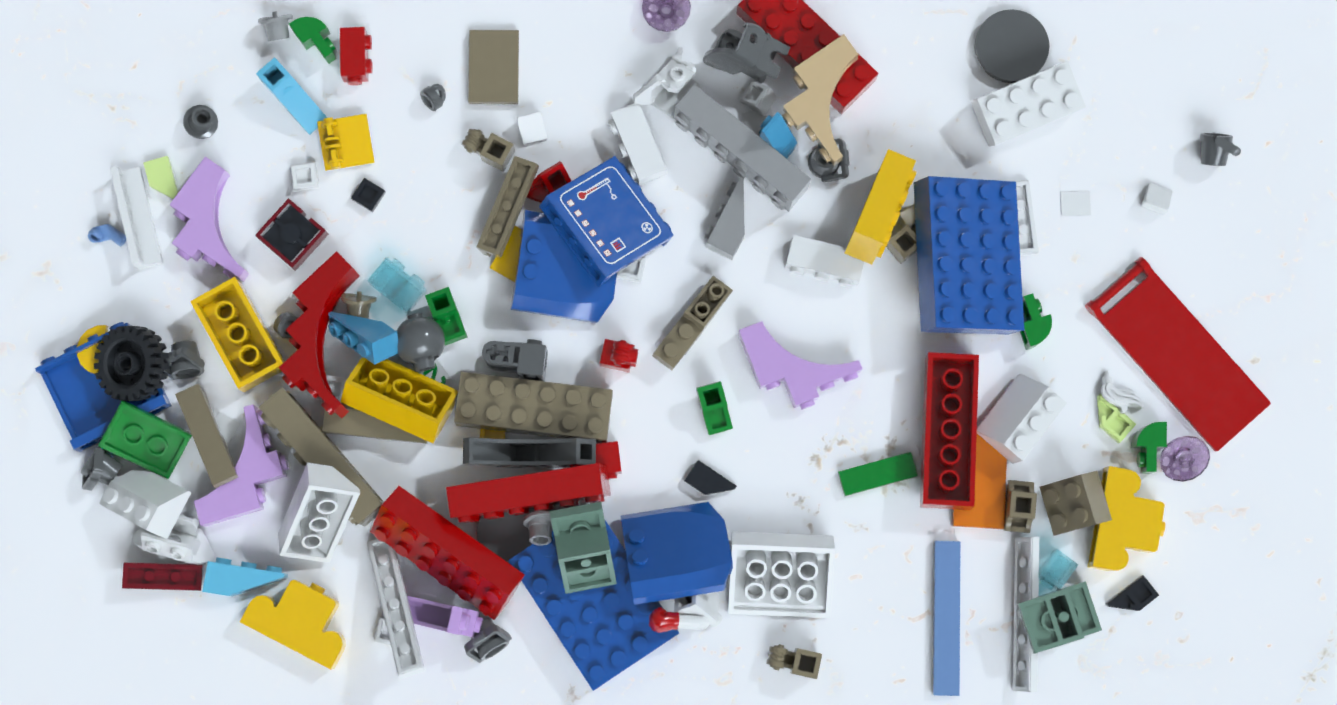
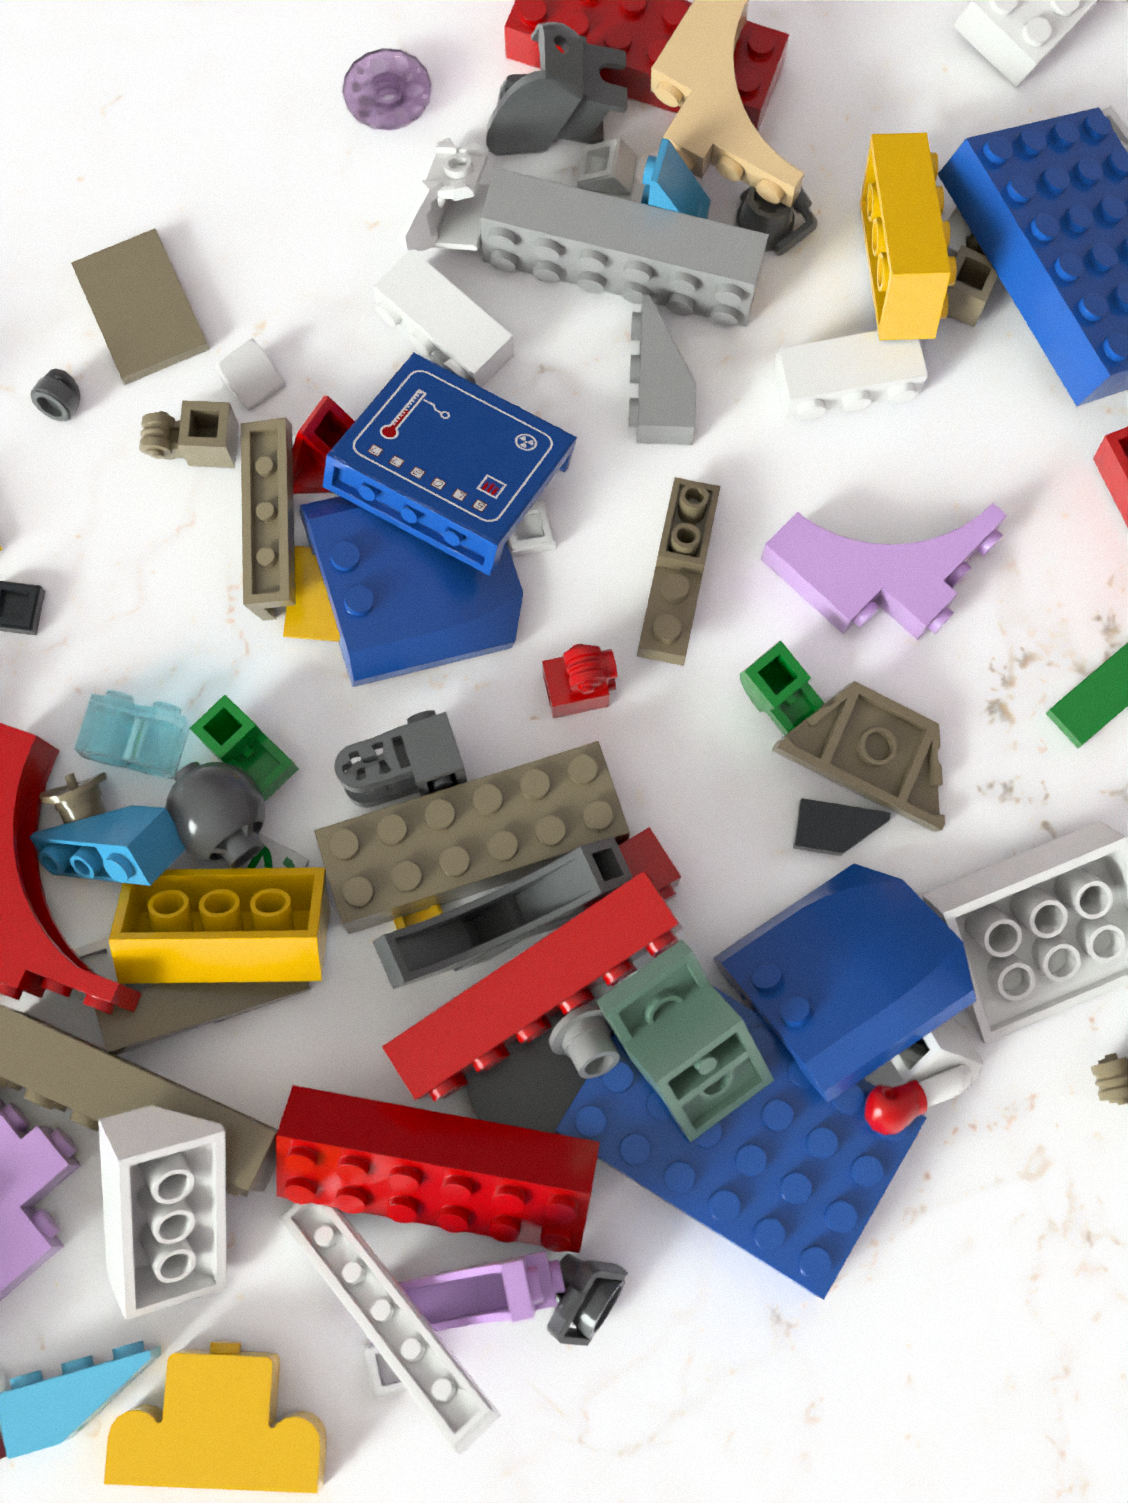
camera: 20 degrees left, 5 degrees down
(742, 452) = (874, 751): none -> dark tan wing

